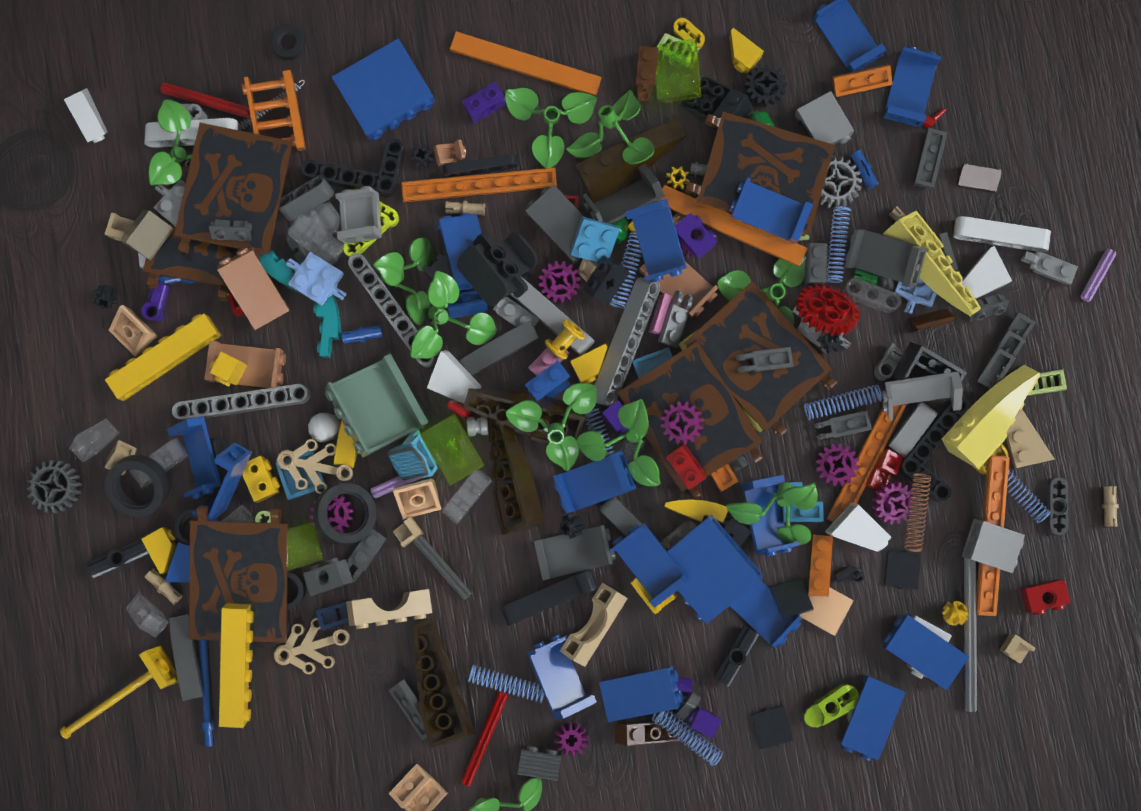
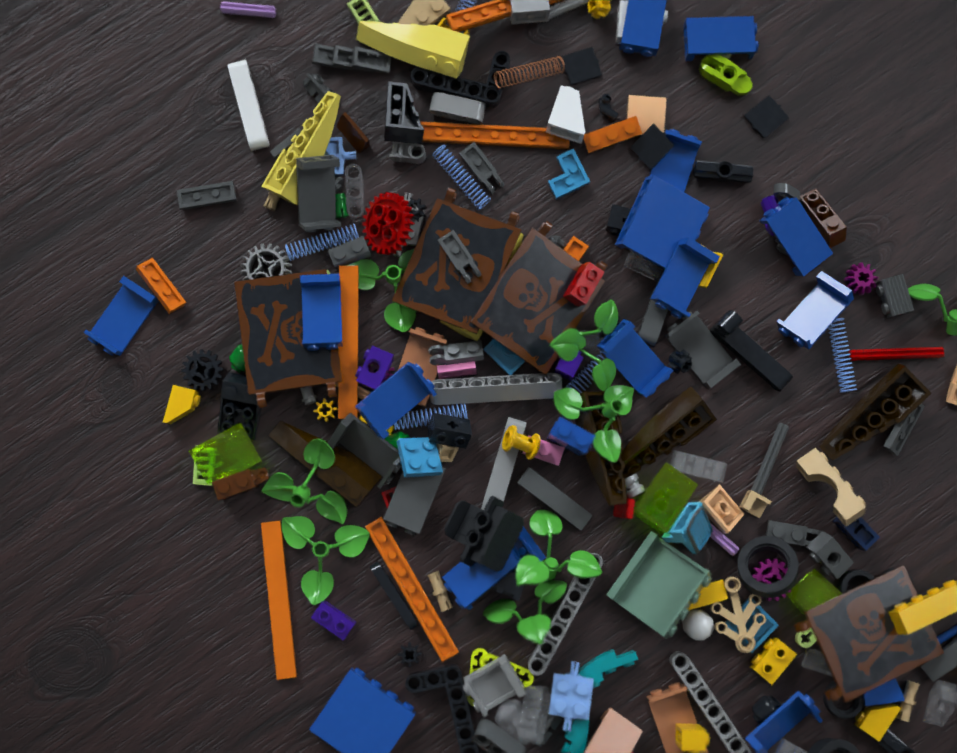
camera: 120 degrees left, 0 degrees up
(234, 460) = (777, 688): blue panel -> none
(308, 647) = (896, 544): tan plant -> none
(362, 334) = (598, 630): blue pin -> none
(449, 153) = (395, 629): nougat bracket -> none
(451, 378) = (602, 526): white slope -> none
(514, 313) = (516, 497): light grey hinge -> none
(550, 275) = (460, 471): magenta gear -> none
(583, 643) = (775, 304): tan arch -> none
(589, 365) = (531, 411): yellow slope -> none
(672, 424) = (543, 296): magenta gear -> none
(683, 734) = (810, 181): light blue piece -> none
(691, 29) = (179, 460): yellow beam -> none
(698, 509) = (614, 259): yellow slope -> none
(704, 721) = (793, 171): dark purple brick -> none
(765, 531) = (593, 198): blue panel -> none
(801, 496) = (570, 188): bright green plant -> none
(825, 120) = (213, 301): light grey panel -> none
(845, 468) = (520, 150): magenta gear -> none
(865, 169) = (242, 248): blue pin -> none
(886, 466) = (504, 117): red slope -> none
(886, 509) = (529, 97): magenta gear -> none
(911, 86) = (147, 240): blue panel -> none
(922, 389) = (421, 111): light grey panel -> none
(929, 121) = (173, 211): red hand -> none
(979, 177) = (205, 146): slope -> none
(987, 274) = (291, 103): white slope -> none
(1050, 267) = (258, 52): light grey hinge -> none

